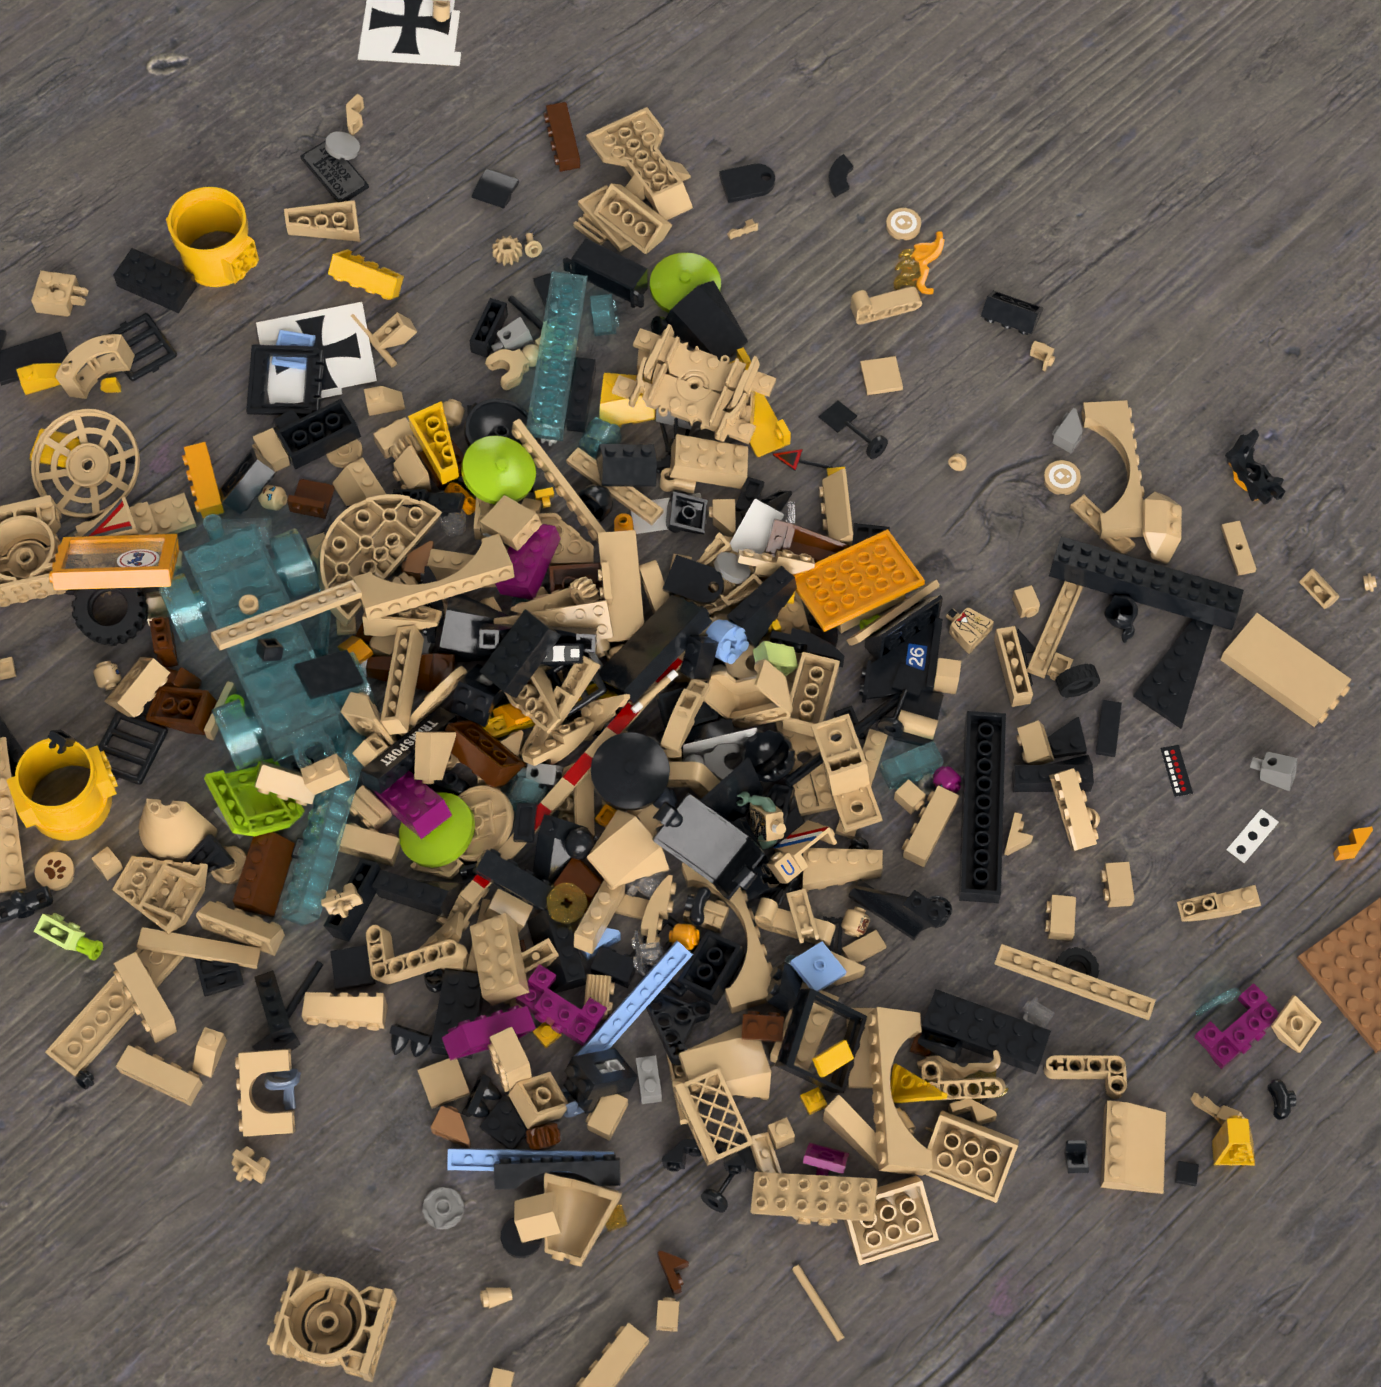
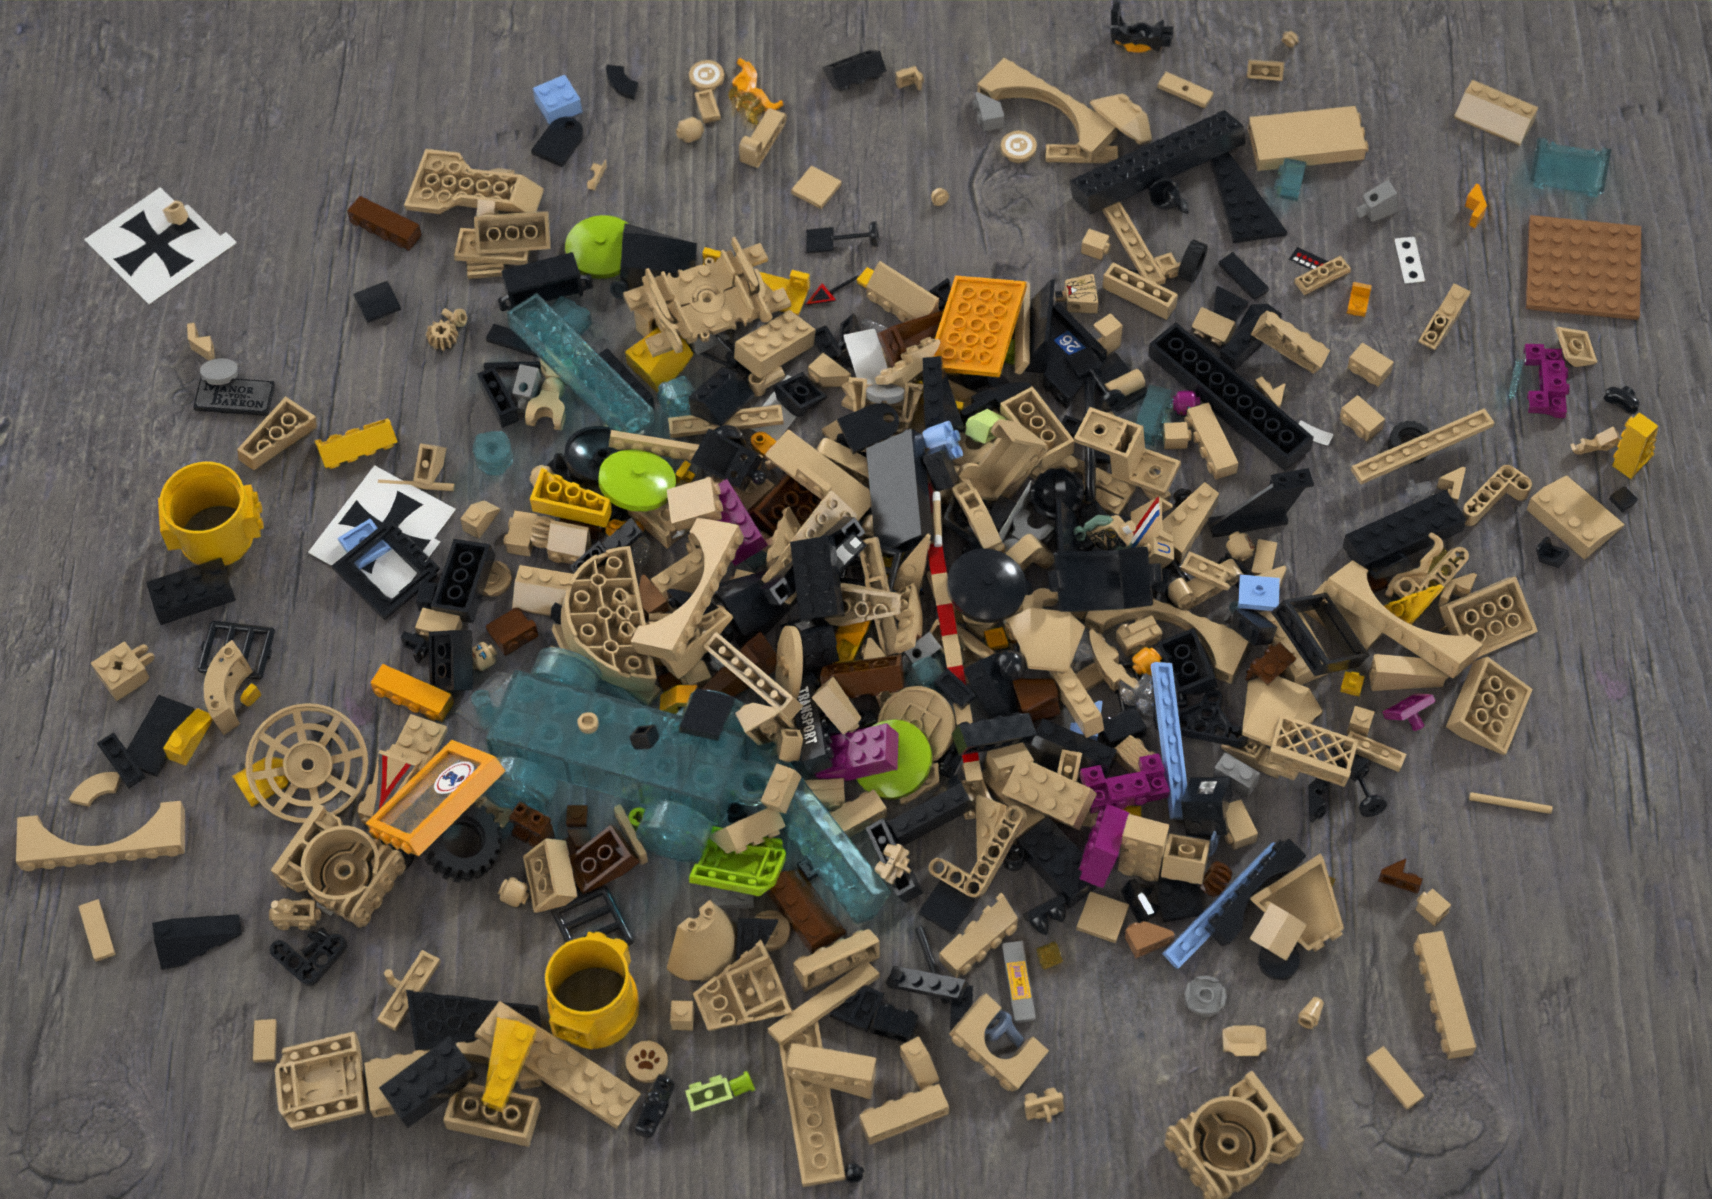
camera: 45 degrees left, 5 degrees down
(62, 739) = (566, 945): black tile -> none
(206, 664) = (576, 815): none -> reddish brown plate
(225, 1009) = (894, 1023): none -> black brick
(245, 445) = (417, 643): none -> black bracket
(286, 615) = (625, 704): tan plate -> none
(337, 1066) = (1018, 982): none -> tile
(375, 1070) = (1049, 955): none -> clear yellow plate
(428, 1267) = (1244, 1040): none -> tan slope
(441, 363) = (492, 452): none -> clear light blue brick
(574, 515) = (727, 459): none -> black slope
(574, 894) = (1046, 723): clear yellow plate -> none
(583, 591) = (802, 503): tan gear -> none
(696, 905) = (1132, 632): black piece -> none
(778, 149) = (557, 99): none -> light blue brick
(814, 1197) = (1434, 736): tan bracket -> none
(832, 1058) = (1342, 636): yellow tile -> none
(841, 253) = (689, 129): none -> tan head
(877, 247) = (707, 106): none -> tan tile
(1015, 893) = (1319, 435): none -> white sticker
(1070, 1033) = (1452, 483): none -> tan slope
(1176, 827) = (1359, 299): none -> light orange slope
(1180, 787) = (1322, 275): none -> tan tile
(1233, 689) = (1290, 179): none -> clear light blue brick

